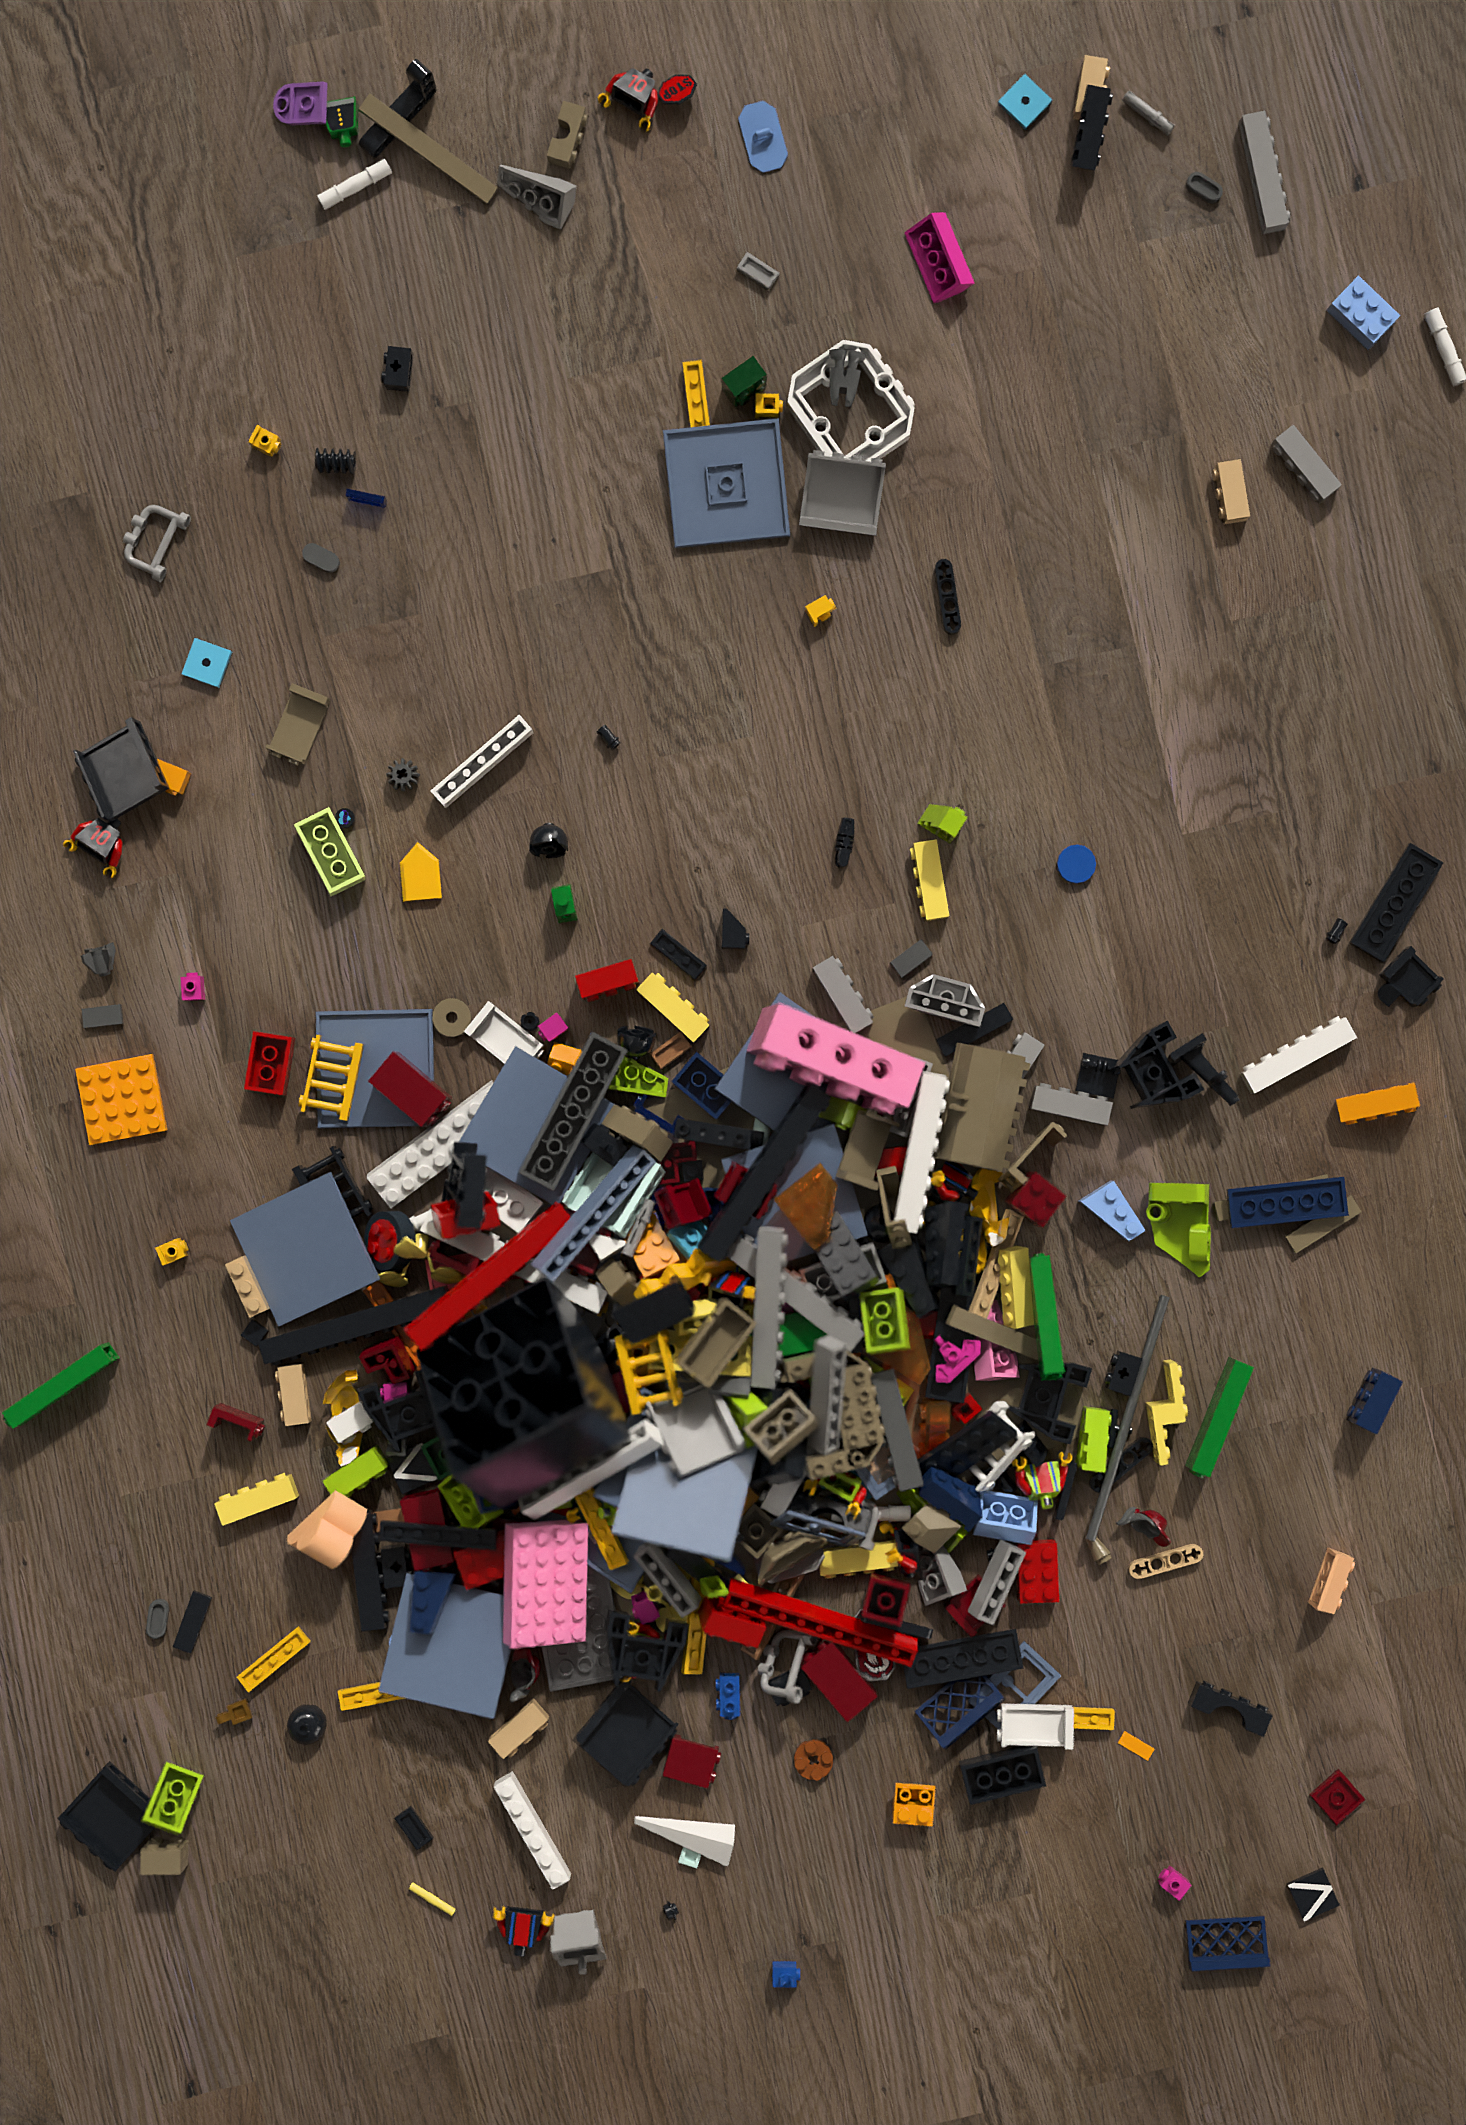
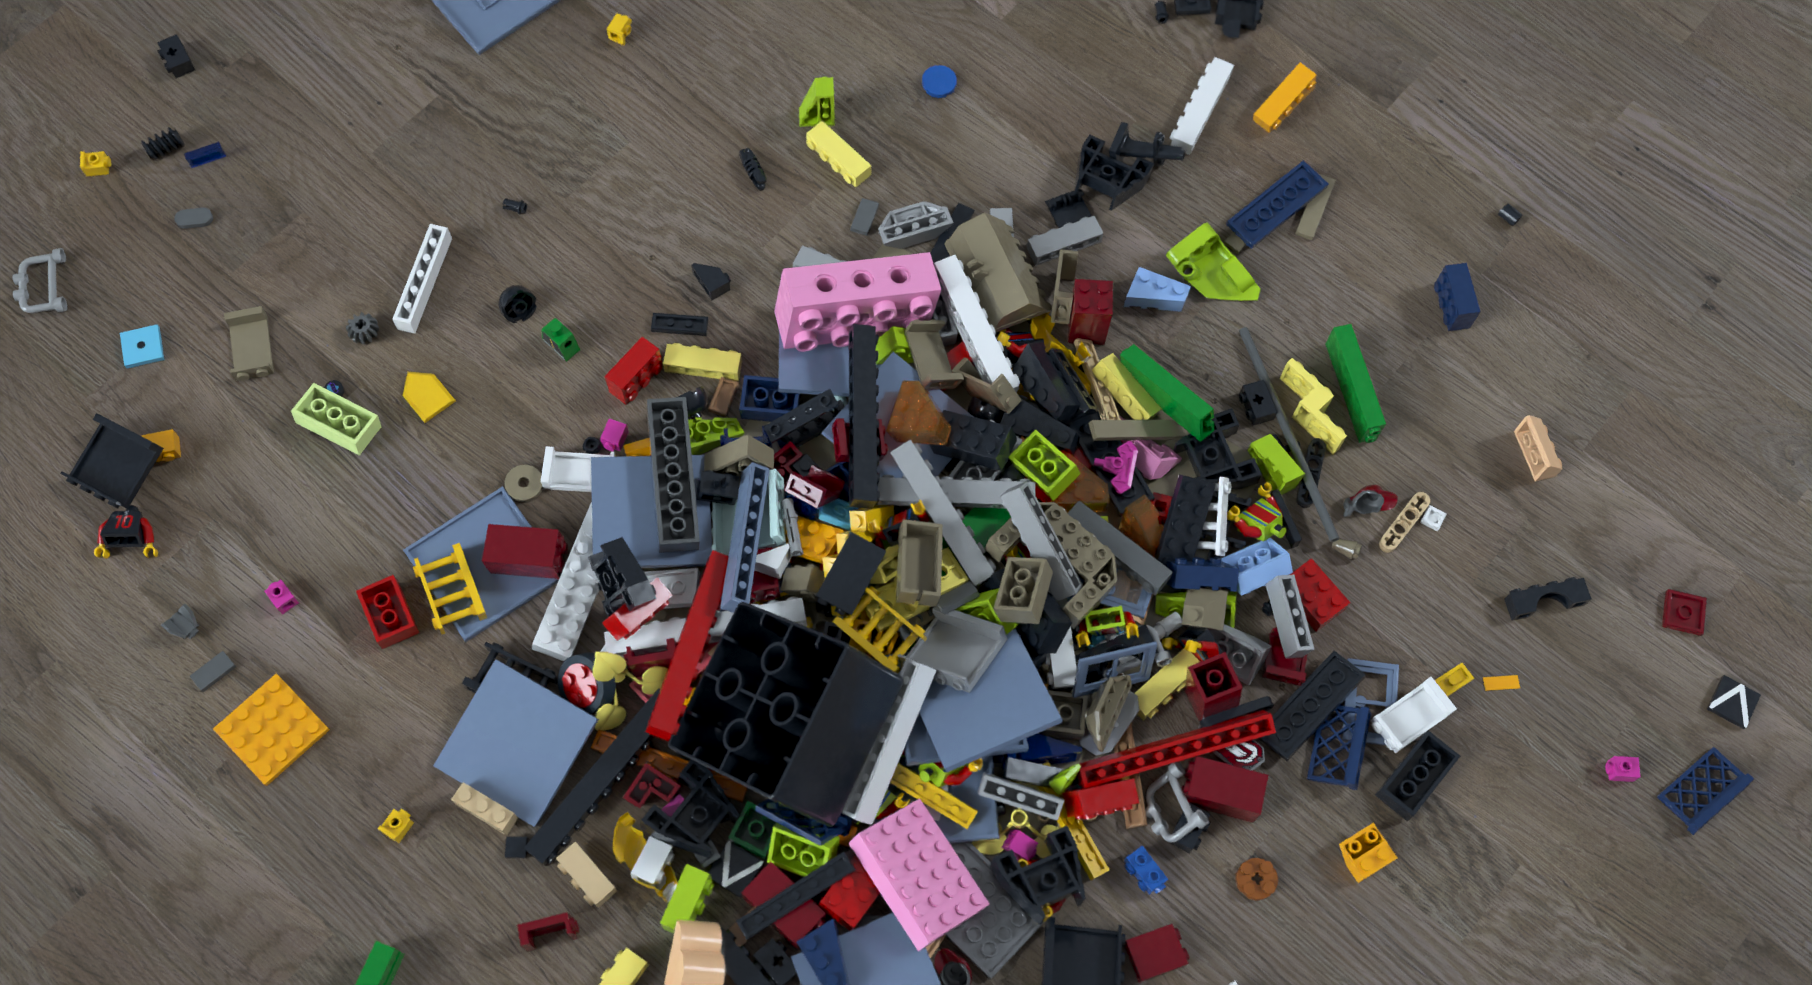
camera: 35 degrees left, 20 degrees down
(1193, 1574) = (1433, 518): none -> white tile

